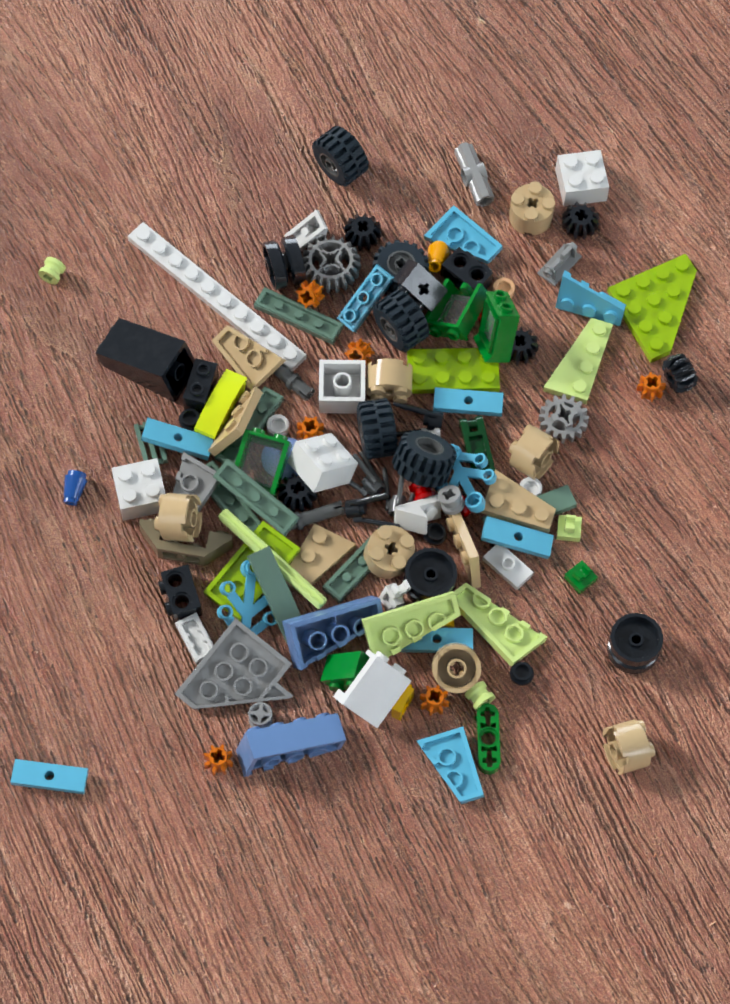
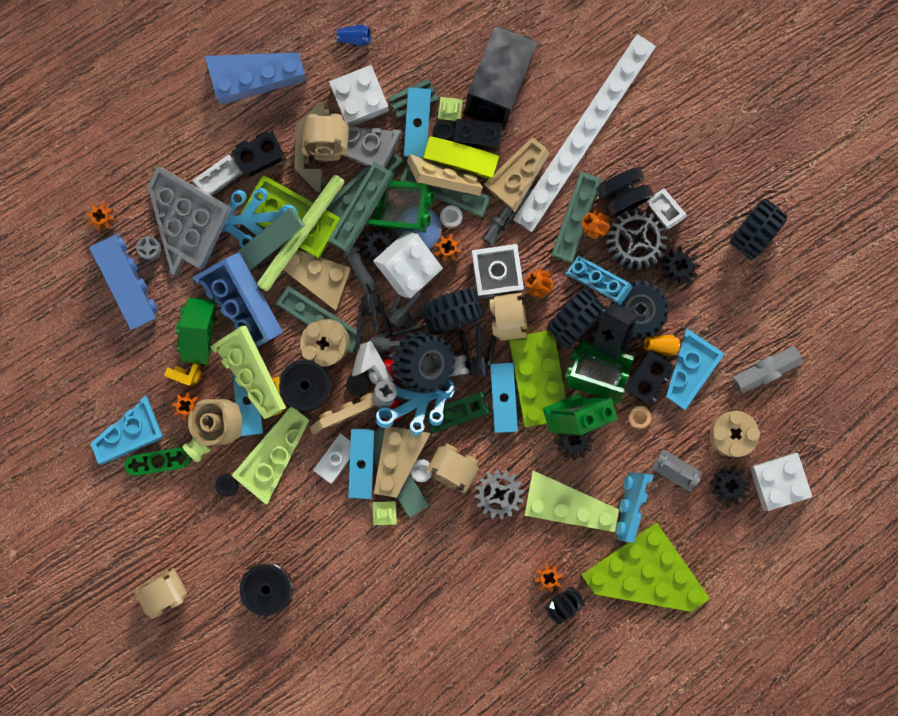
camera: 85 degrees right, 20 degrees up
(34, 775) = (65, 56): medium azure tile -> none
(94, 591) = (253, 74): none -> medium blue wedge
(169, 411) = (450, 109): none -> yellowish green tile
(375, 689) = (178, 349): white panel -> none
(393, 595) = (282, 354): white plate -> none
(580, 577) = (334, 530): green tile -> none

